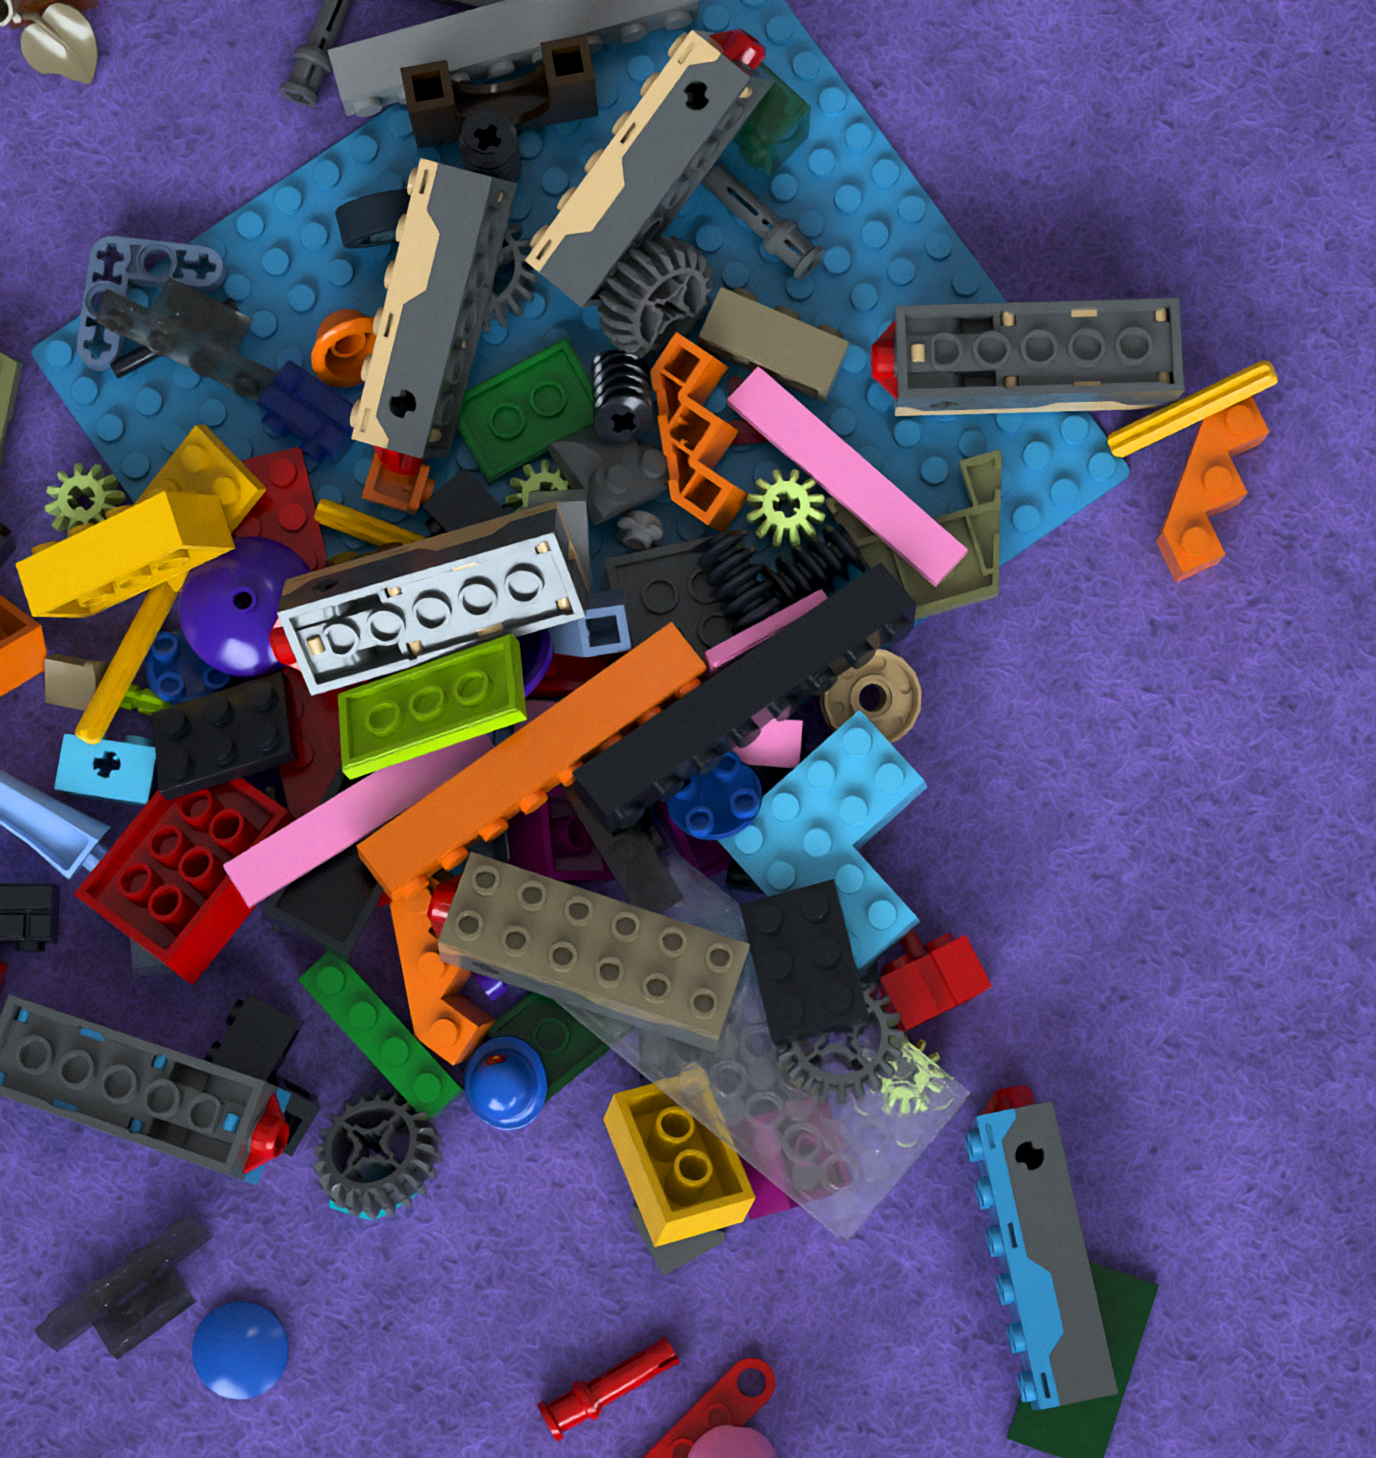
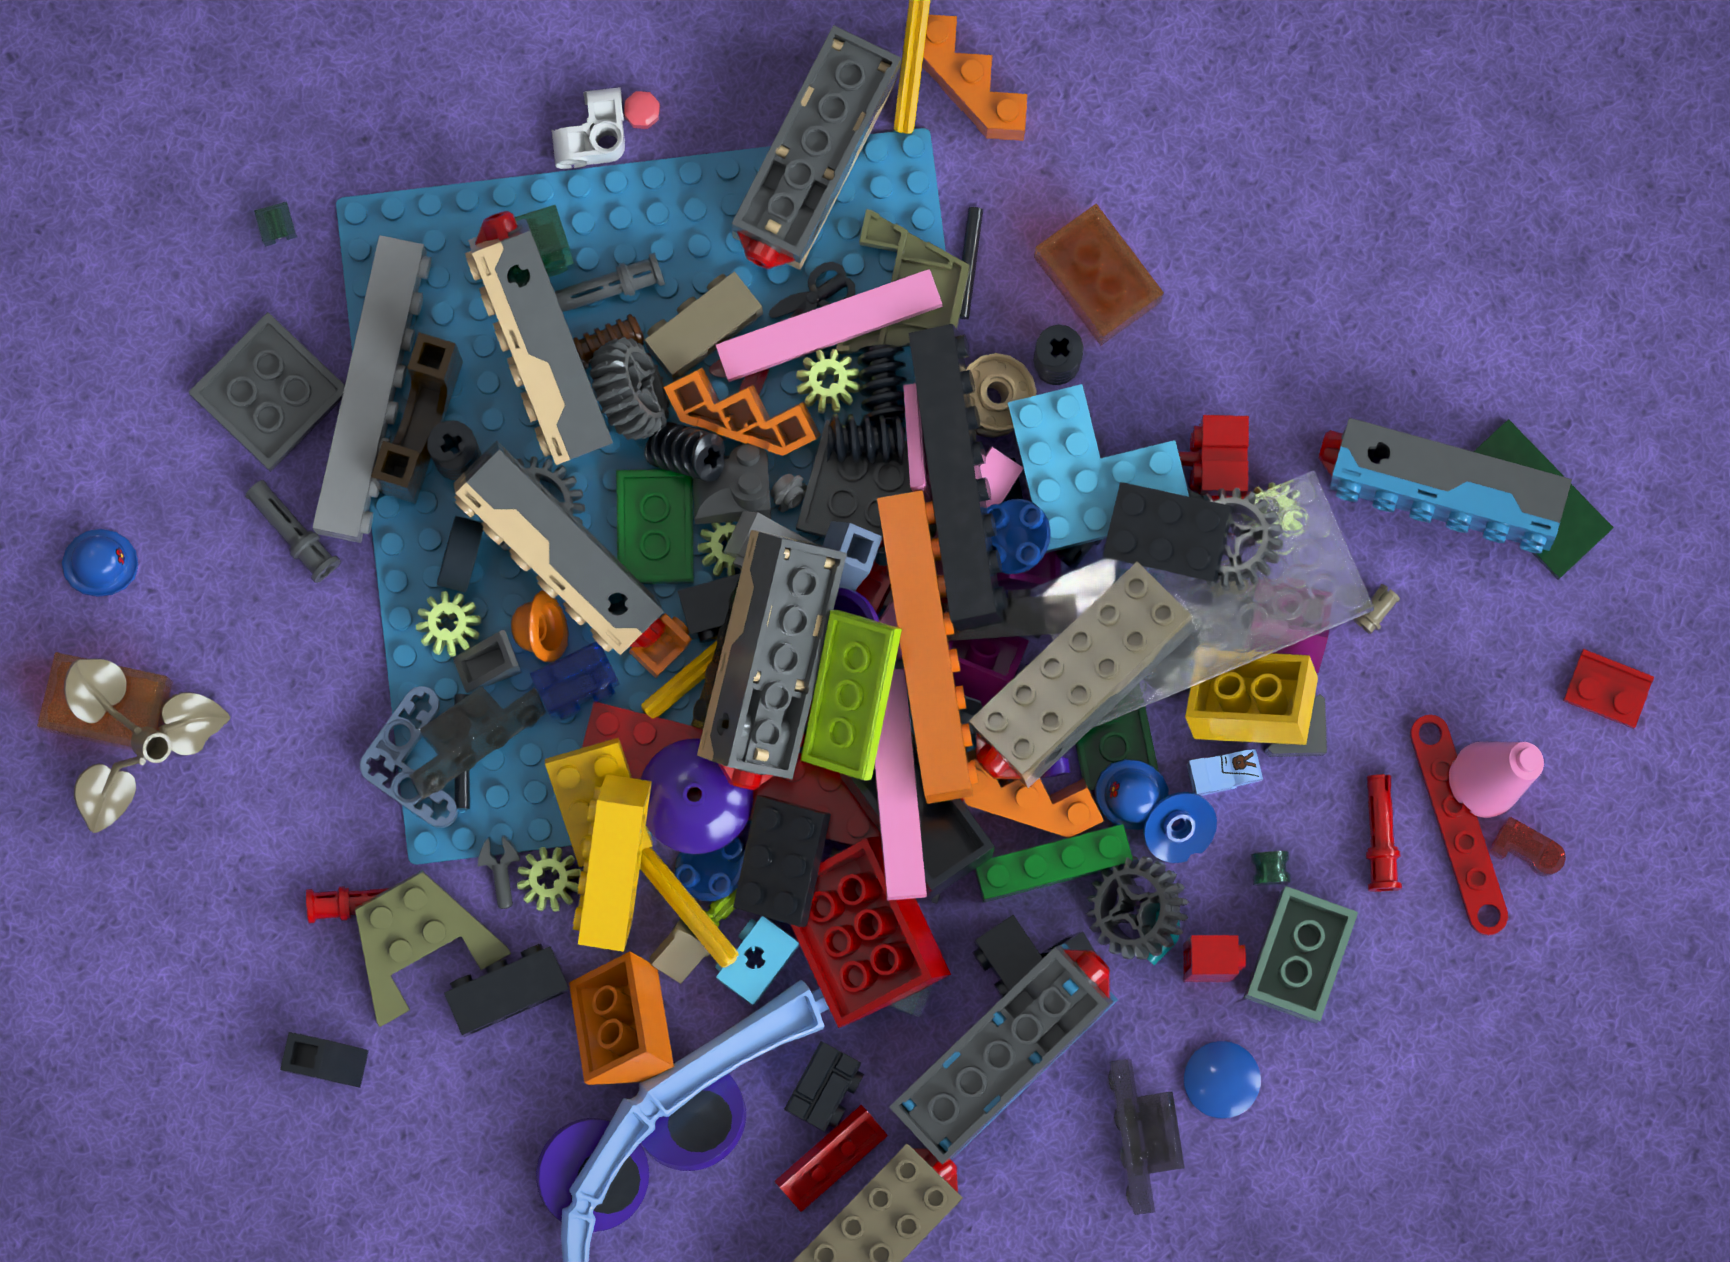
camera: 65 degrees left, 0 degrees up
(71, 445) = (500, 869): none -> dark grey bar
(285, 314) = (487, 662): none -> dark grey slope
(297, 232) = (452, 611): none -> yellowish green gear
(357, 1268) = (1212, 958): none -> red brick
(419, 1366) = (1300, 955): none -> sand green brick
(481, 1163) = (1190, 836): none -> blue dish
(503, 1281) = (1270, 868): none -> wheel
(584, 1172) = (1224, 772): none -> light blue leg
(724, 266) = (590, 343): none -> reddish brown piece
(862, 1249) = (1383, 602): none -> dark tan pin
(864, 443) = (809, 301): none -> black piece
(907, 114) = (580, 143): none -> white piece
(968, 737) = (1053, 341): none -> black piece
(979, 158) = (641, 110): none -> coral tile
(1010, 593) = (970, 253): none -> black bar
(1067, 739) = (1098, 274): none -> clear orange brick

